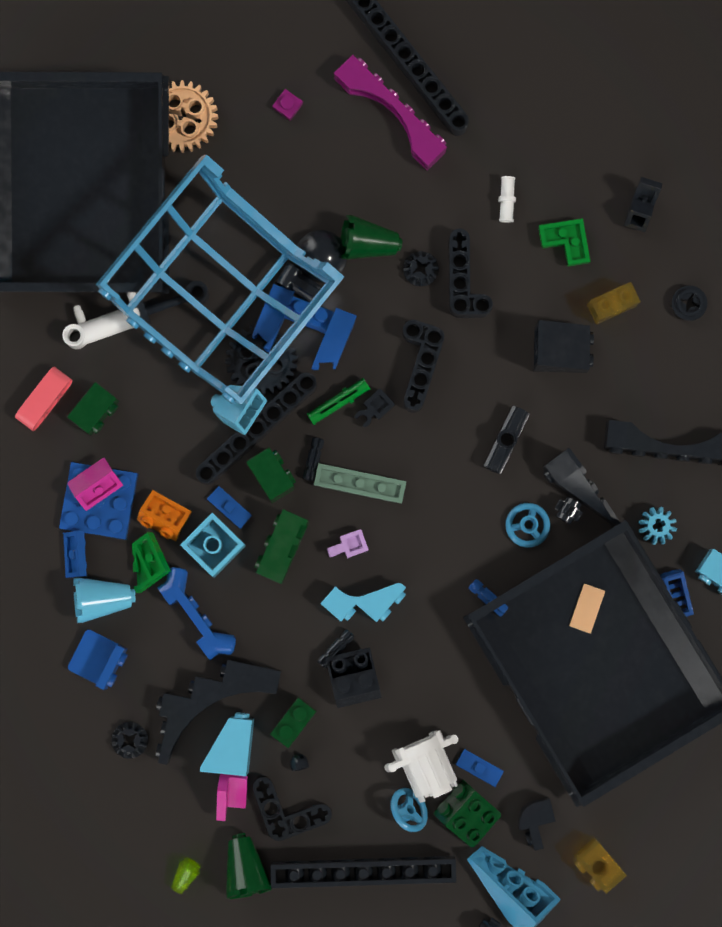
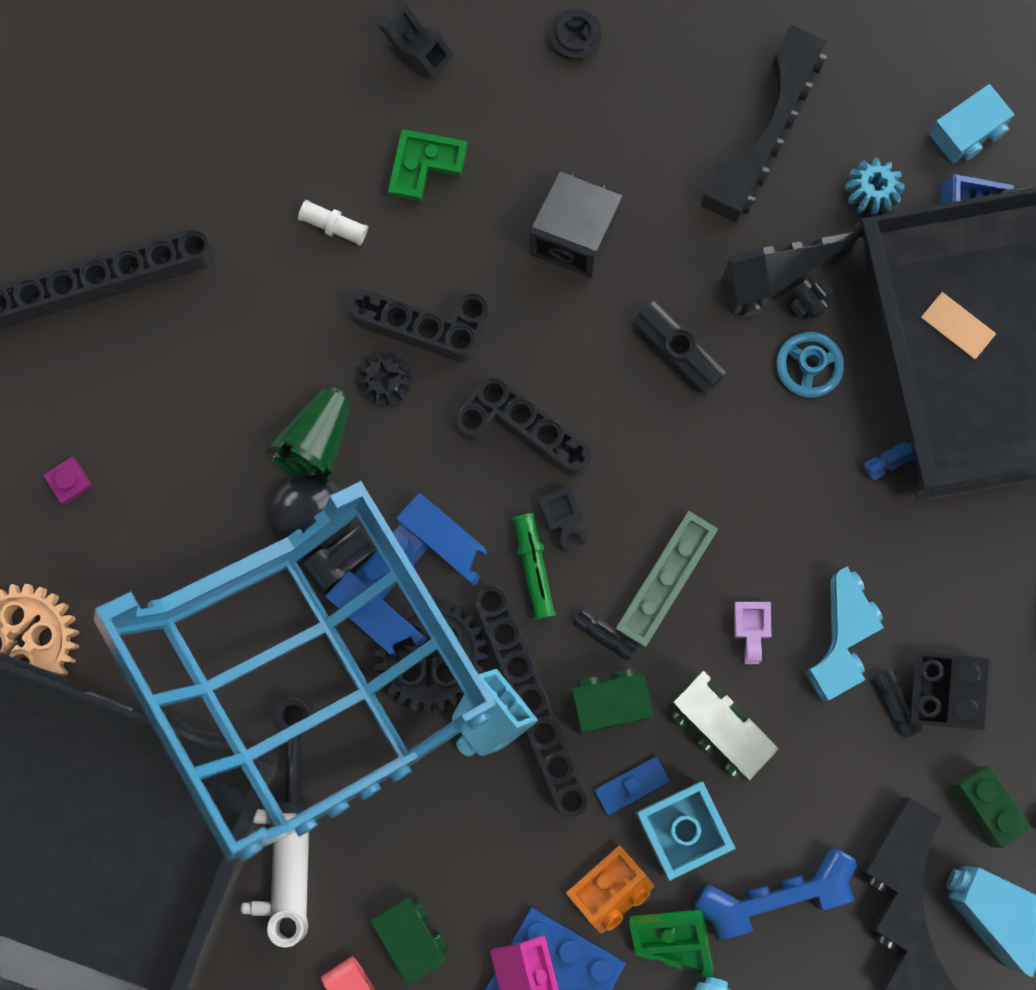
camera: 65 degrees left, 5 degrees down
(359, 81) = (76, 365): magenta arch -> none
(613, 303) = (538, 131): clear yellow brick -> none

